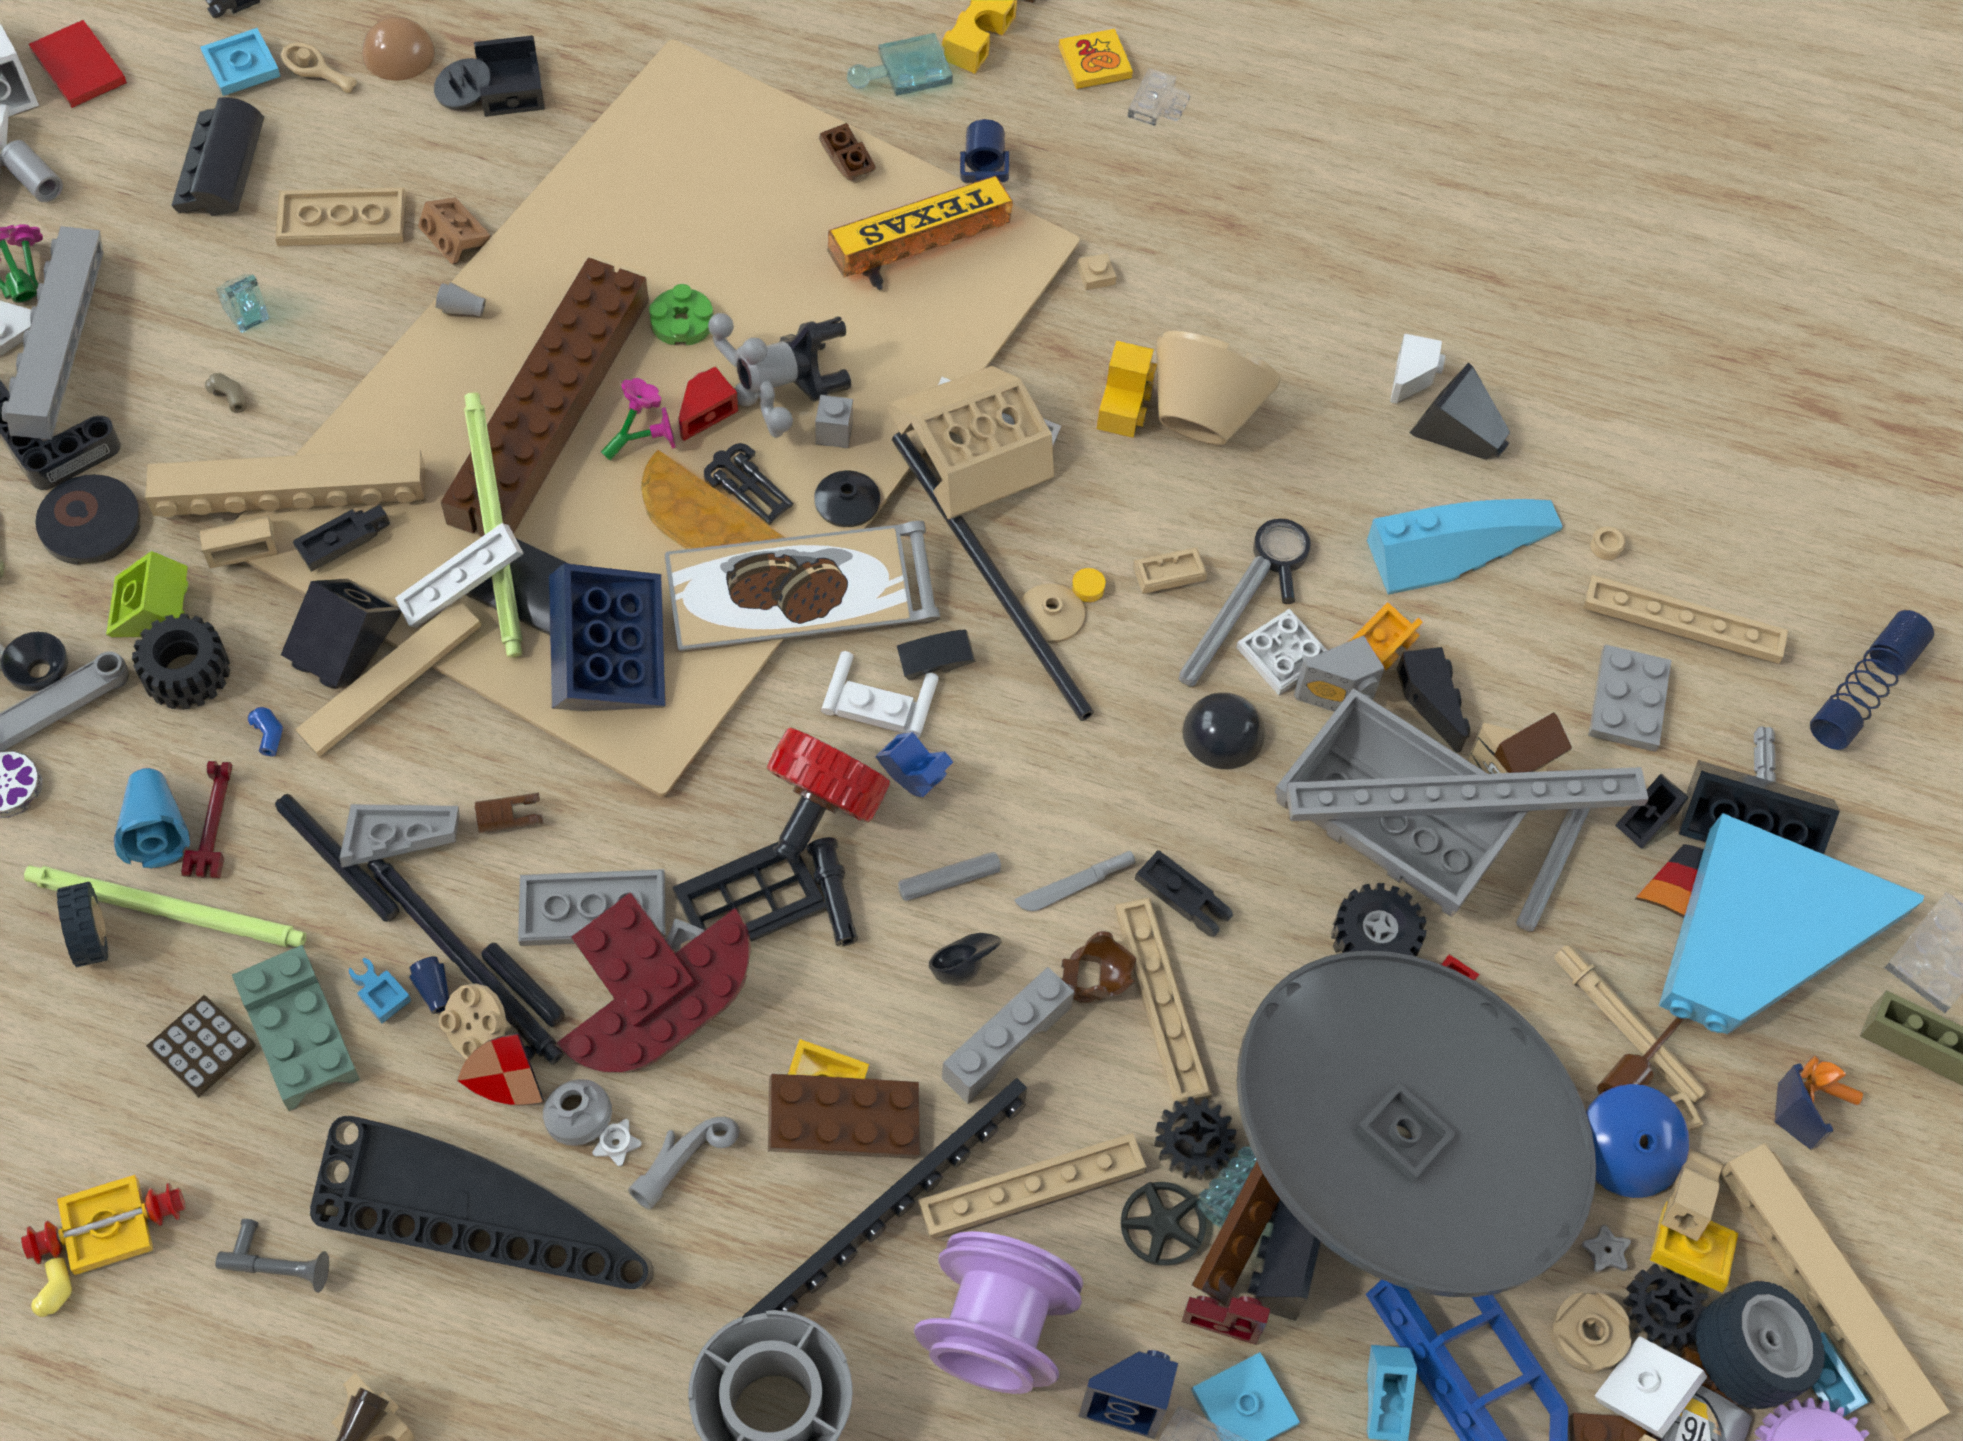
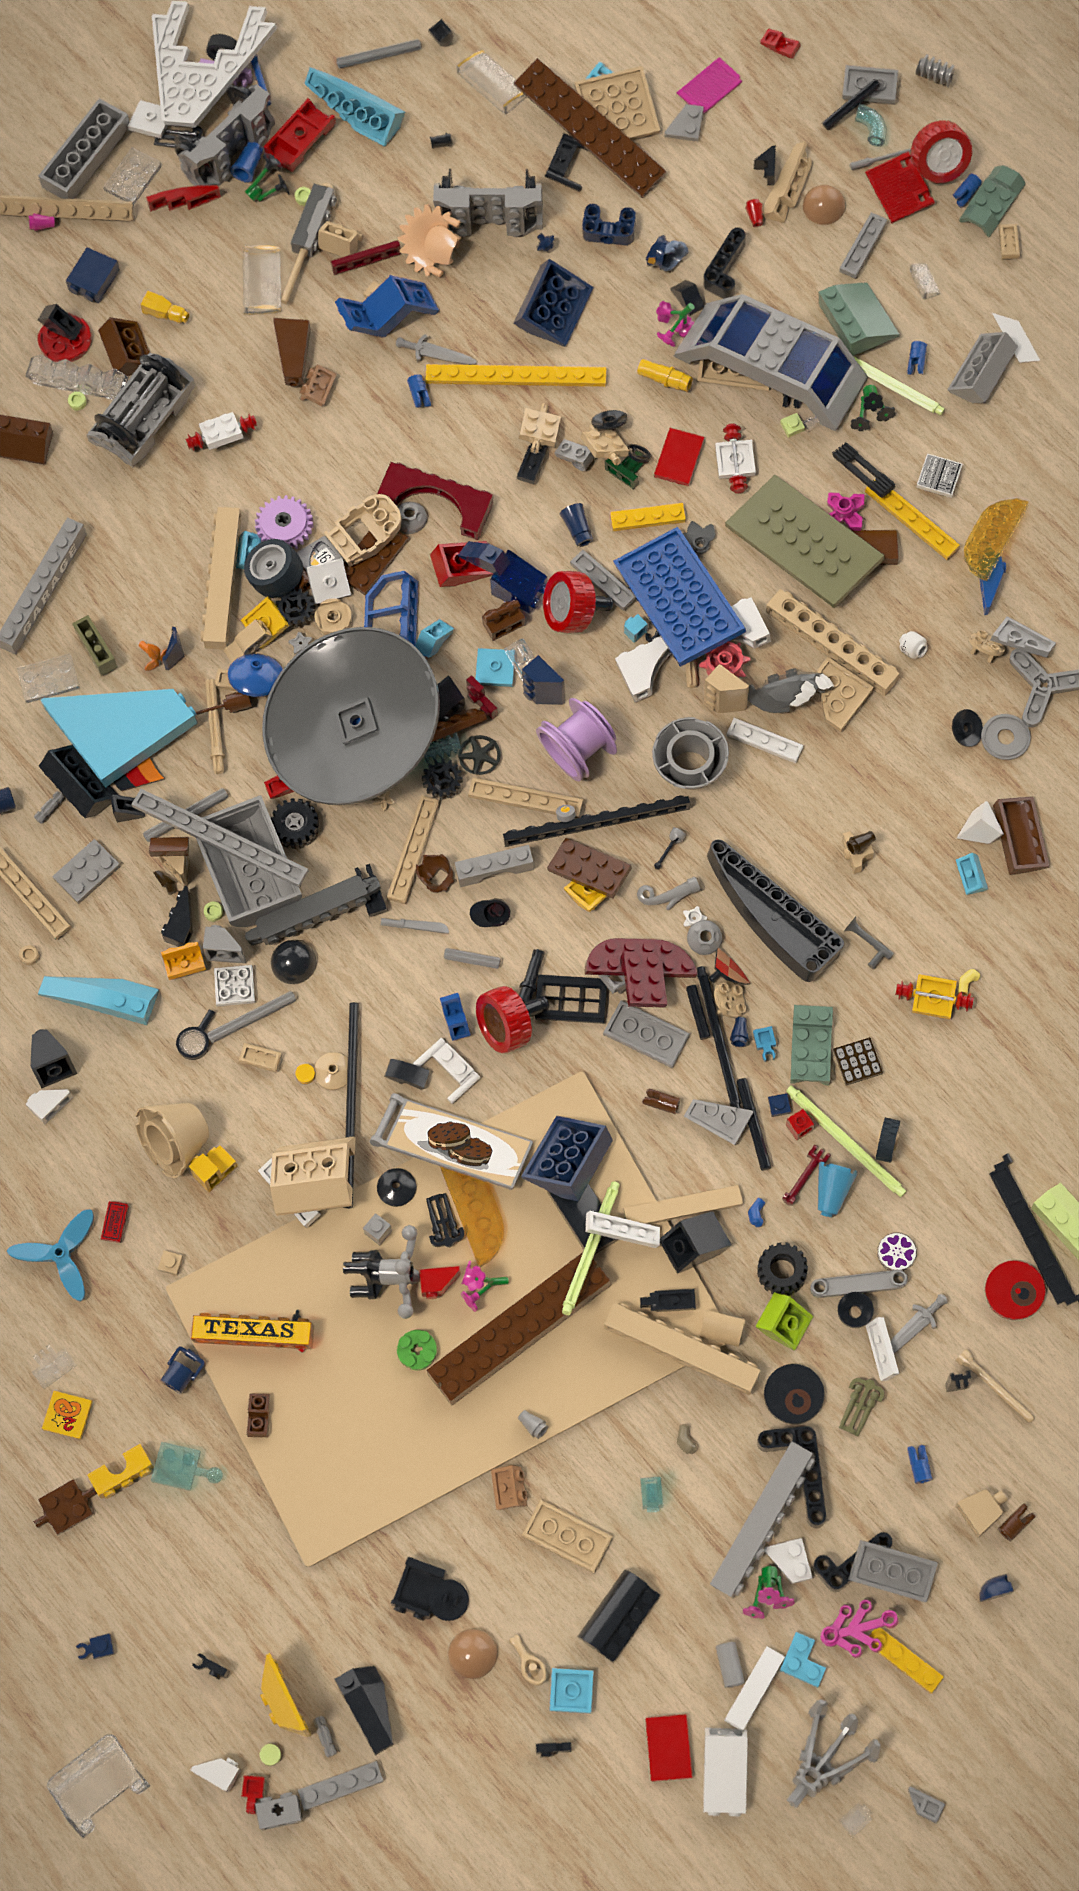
camera: 140 degrees left, 10 degrees up
(253, 885) = (799, 1124): none -> red brick
(307, 908) = (779, 1105): none -> dark blue plate
(726, 1265) = (676, 836): none -> hinge
(941, 1182) = (565, 813): none -> light grey tile
(1208, 282) = (114, 1222): none -> red tile
(1241, 812) = (312, 909): none -> dark grey hinge
(1251, 209) = (70, 1239): none -> dark azure piece

